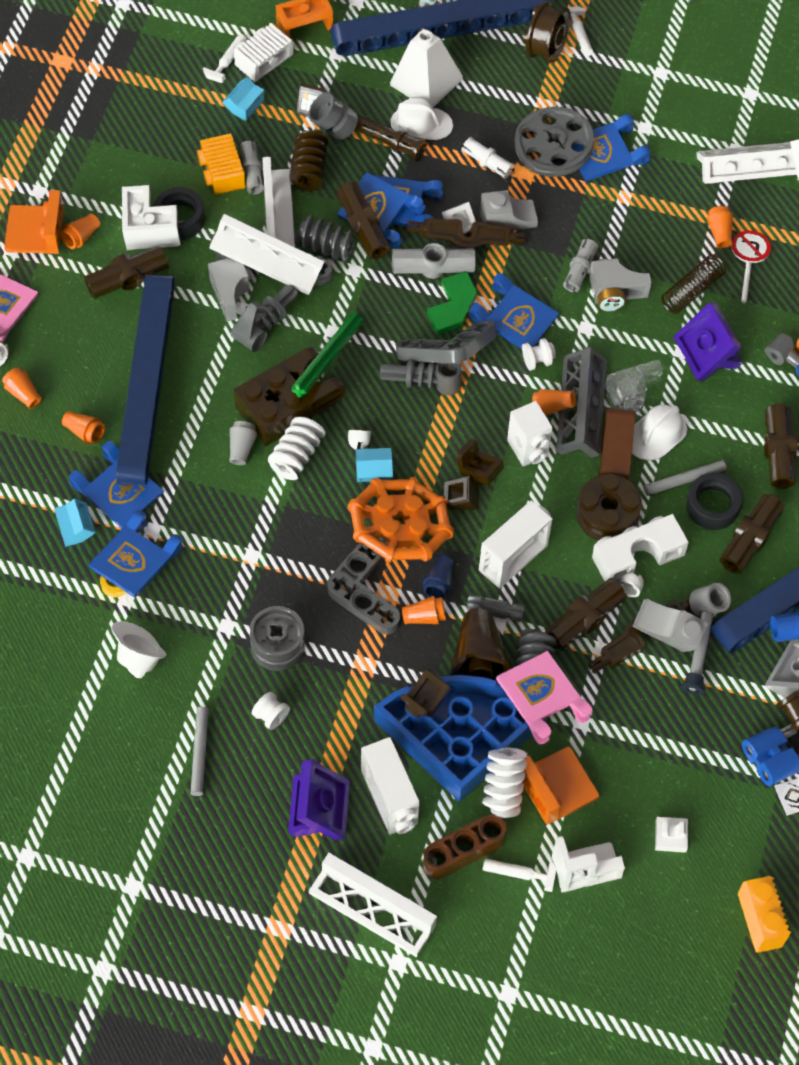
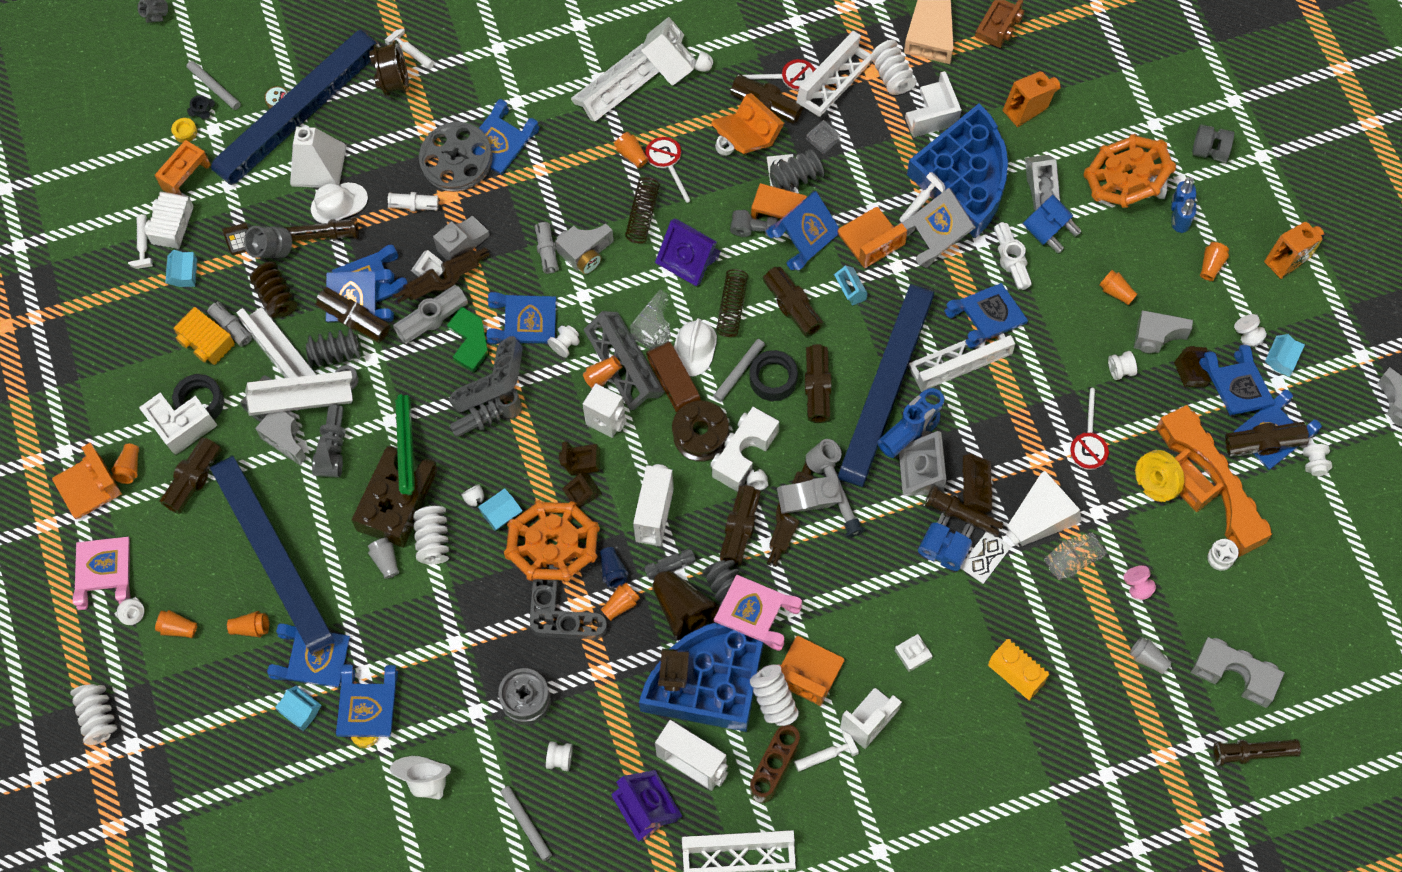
camera: 30 degrees left, 5 degrees up
(732, 404) = (741, 299): none -> dark brown piece

